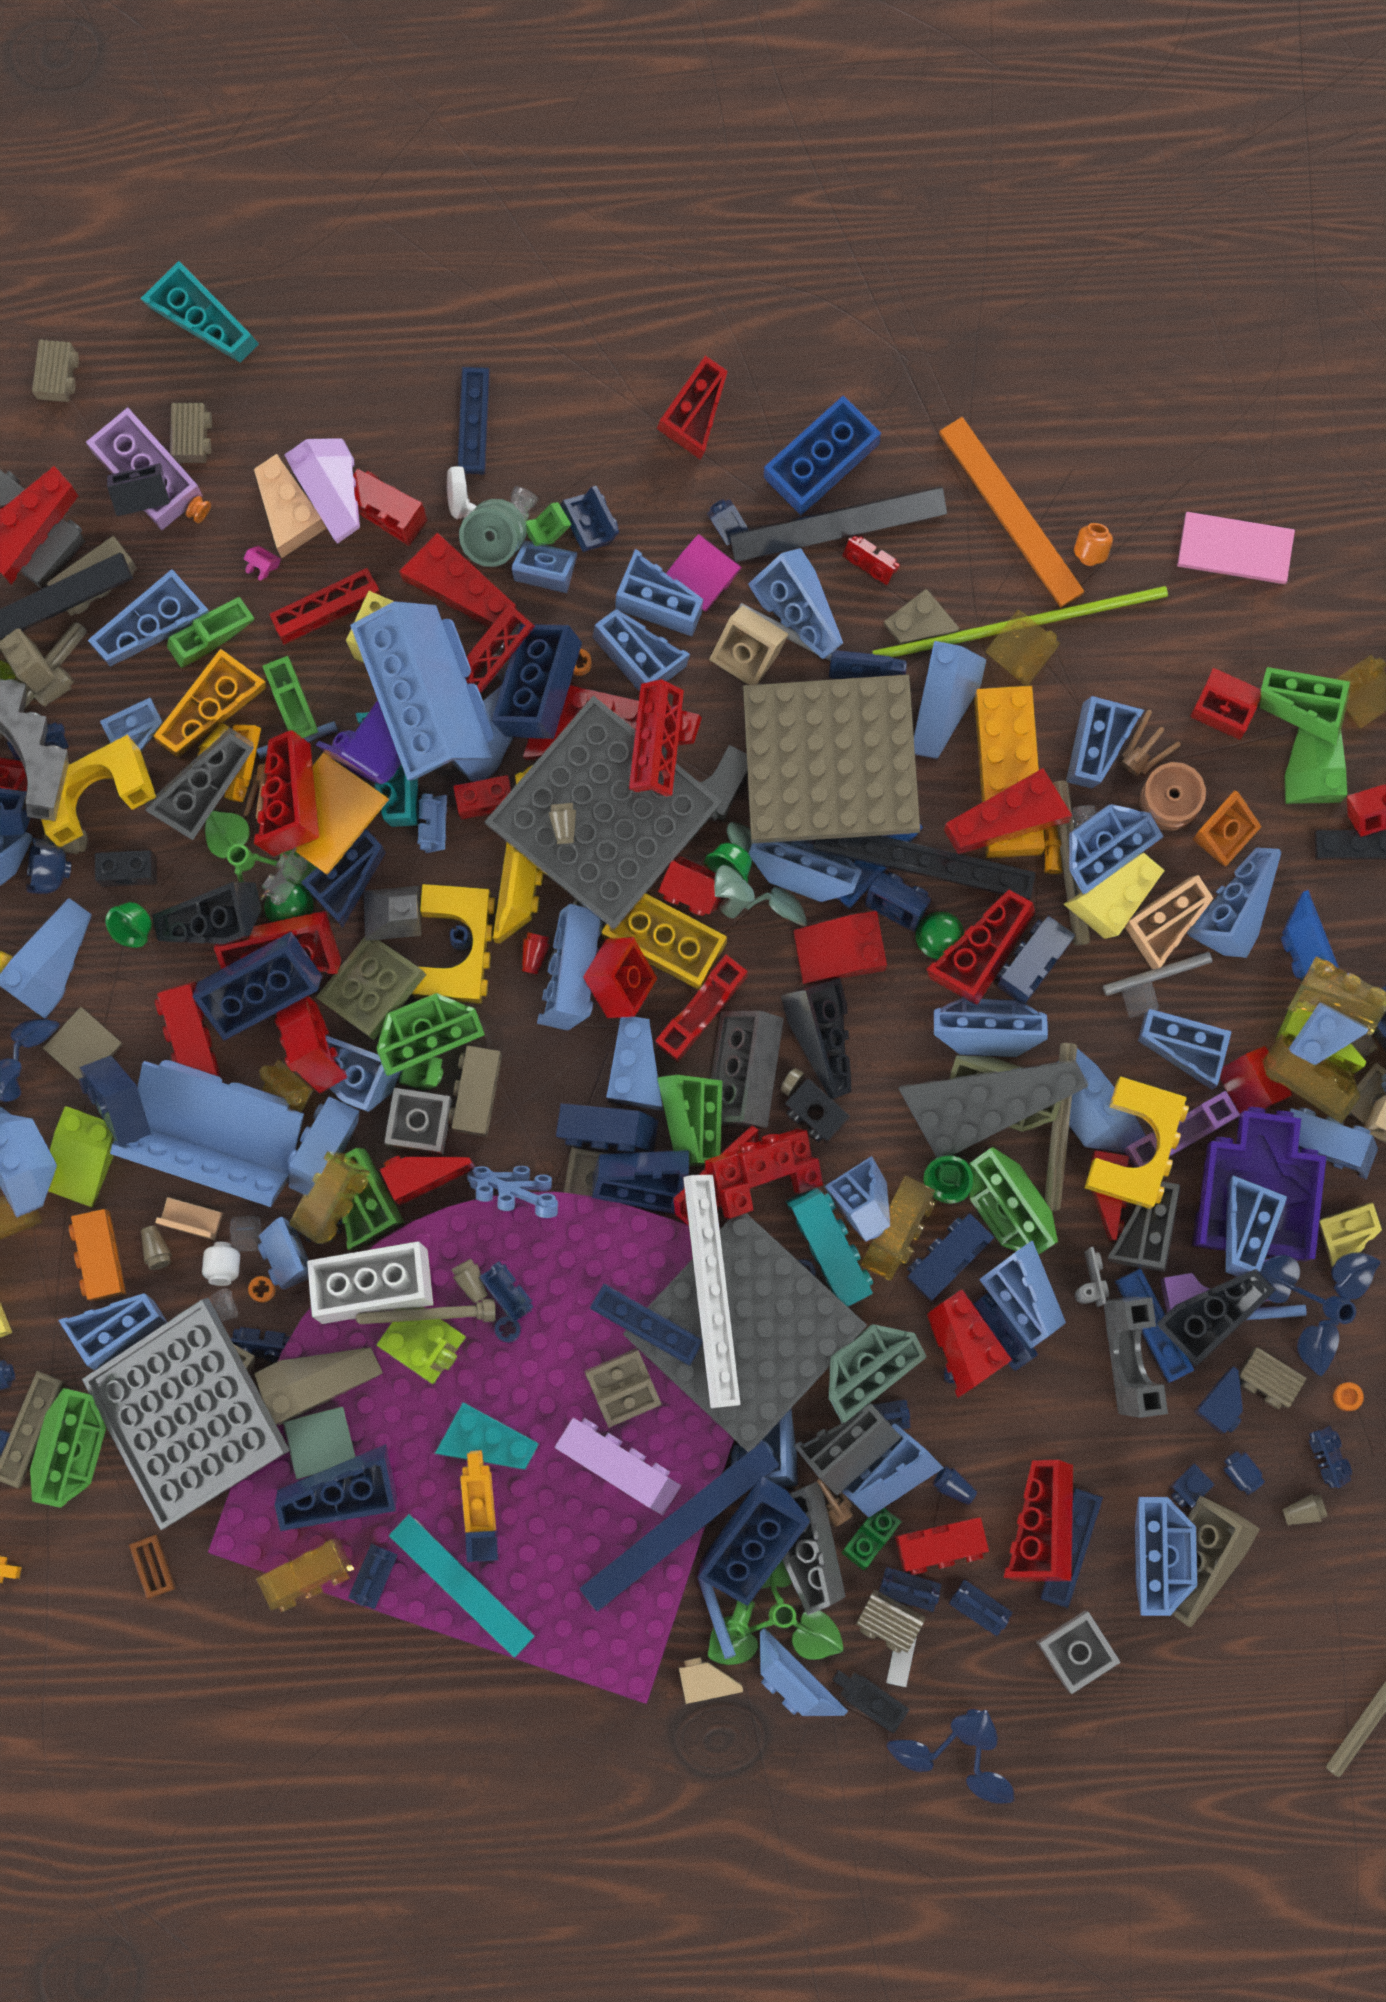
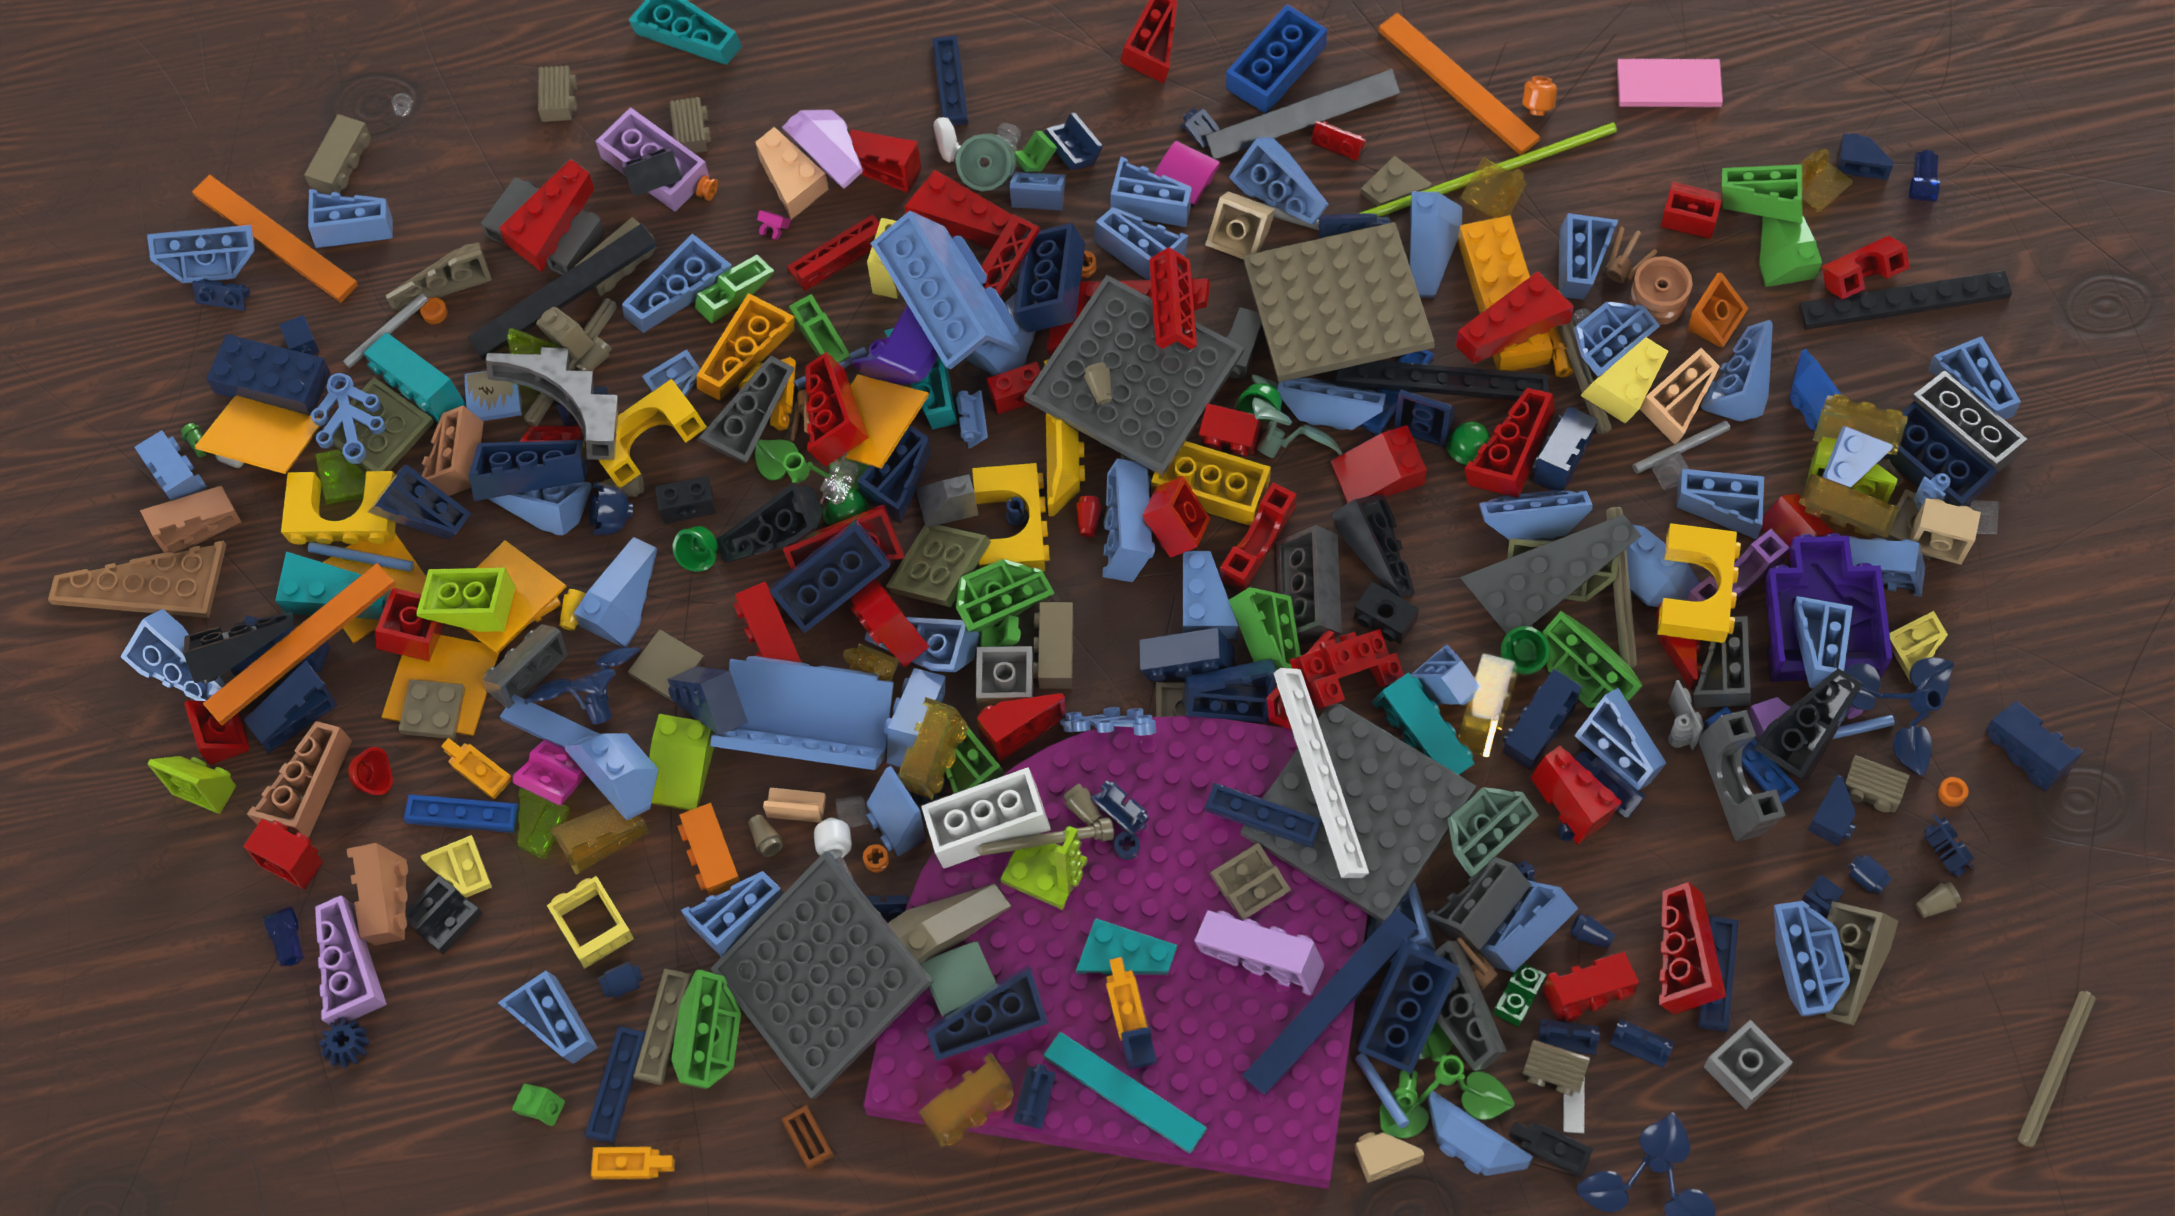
camera: 10 degrees left, 15 degrees down
(792, 1082) = (1356, 590): dark tan tile -> none

